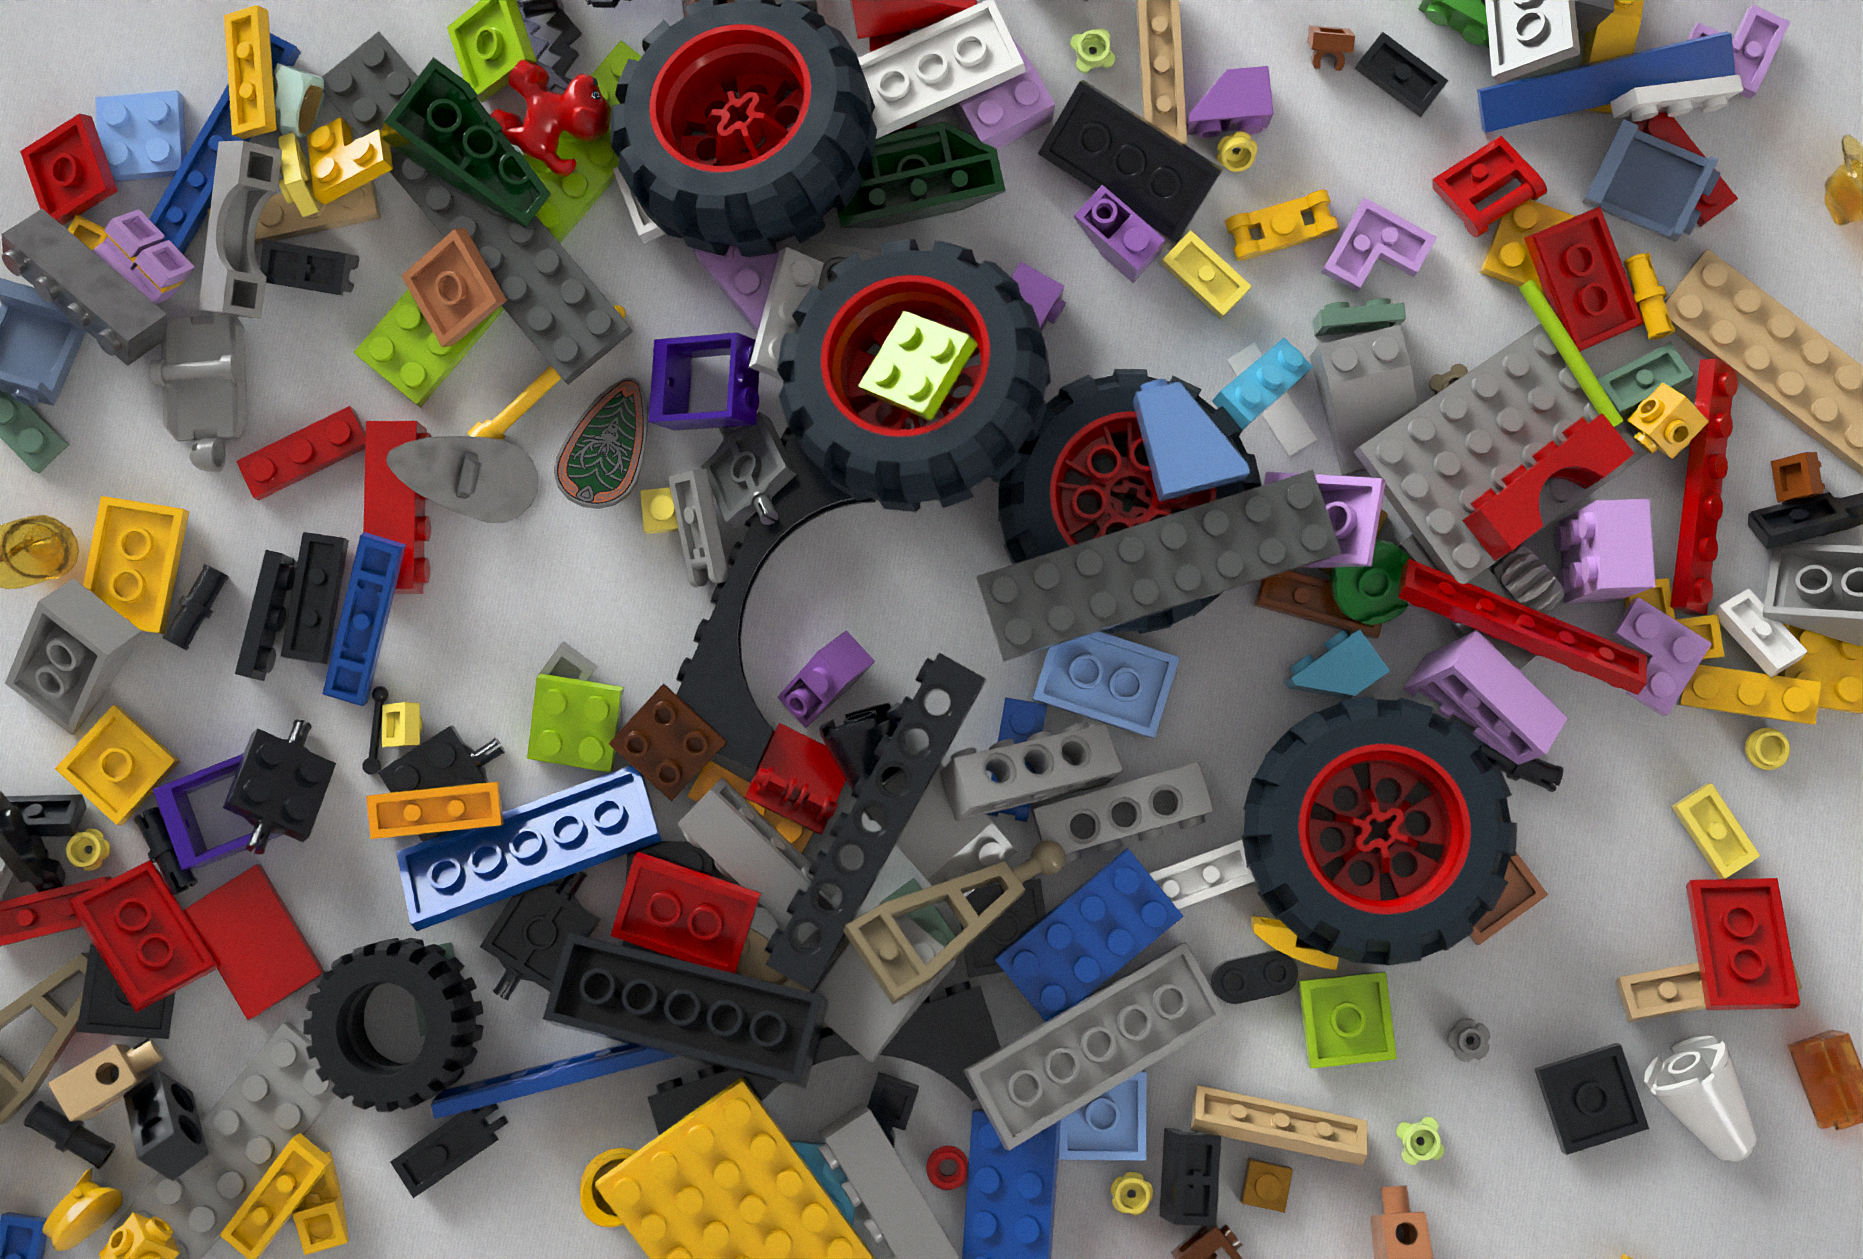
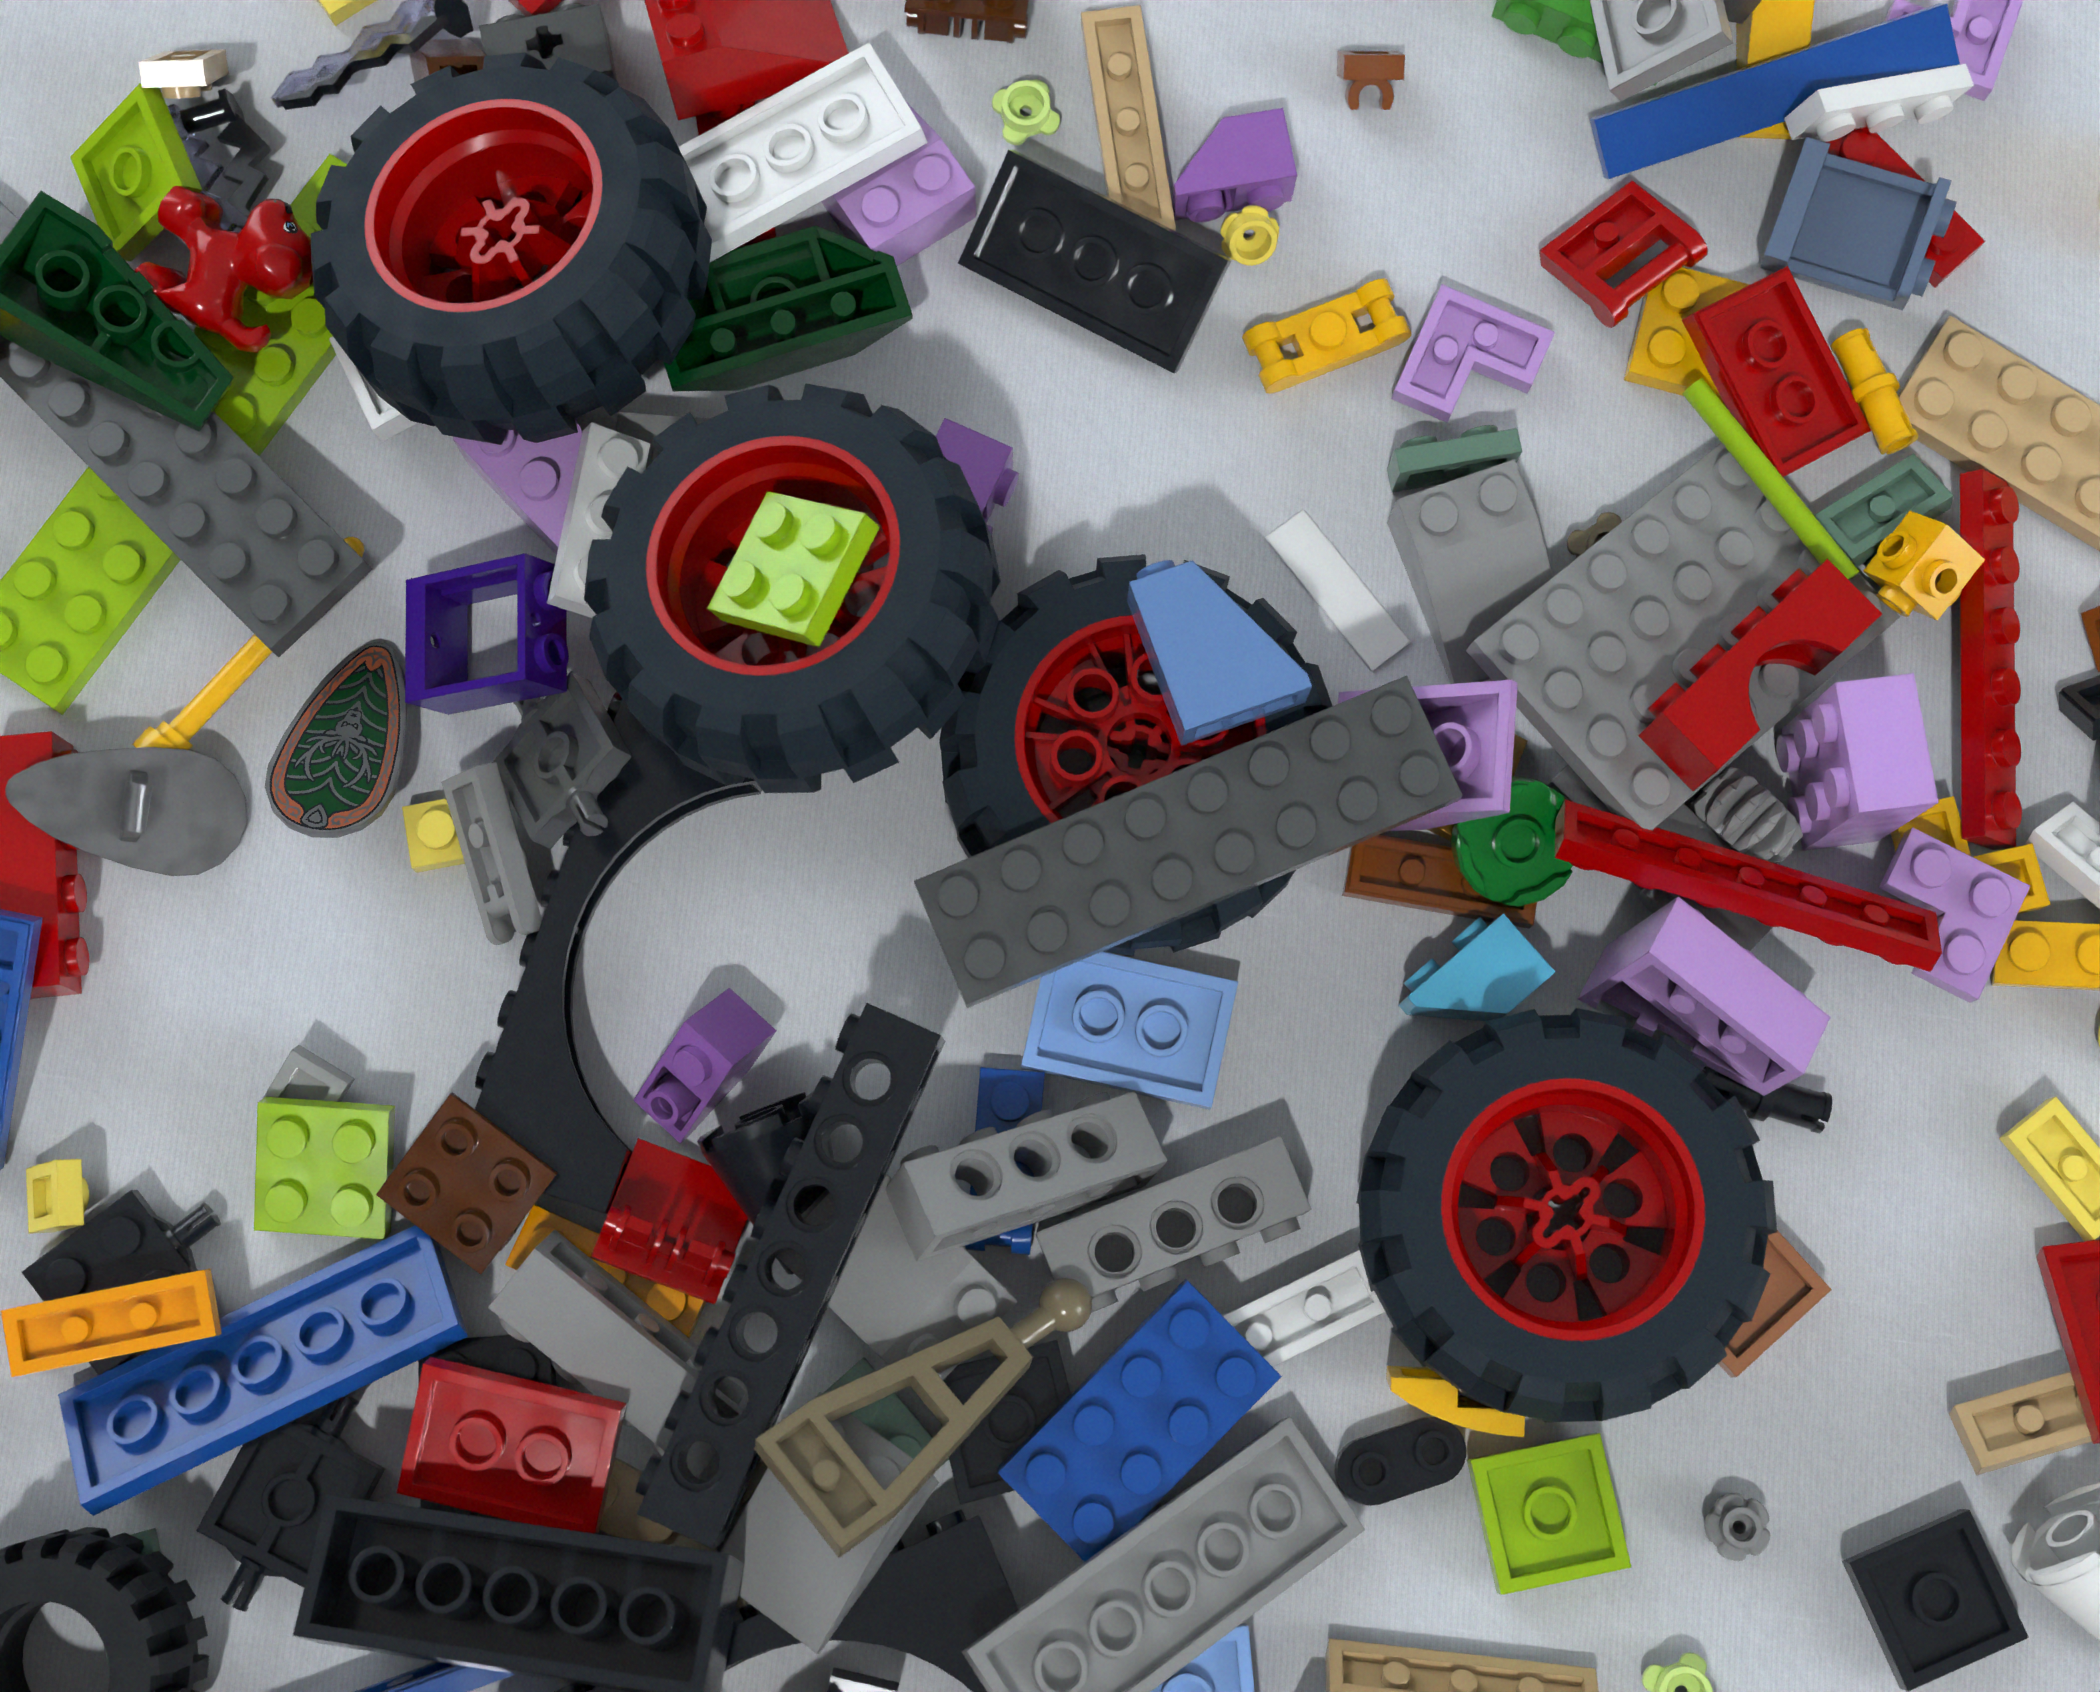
camera: 10 degrees left, 5 degrees down
(372, 764) = (16, 1261): black hinge -> none
(453, 287) = (95, 527): nougat plate -> none
(1119, 233) = (1088, 367): medium lavender slope -> none
(1206, 274) = (1222, 416): light yellow plate -> none
(1263, 383) = (1321, 563): medium azure plate -> none
(1401, 74) = (1478, 107): black plate -> none

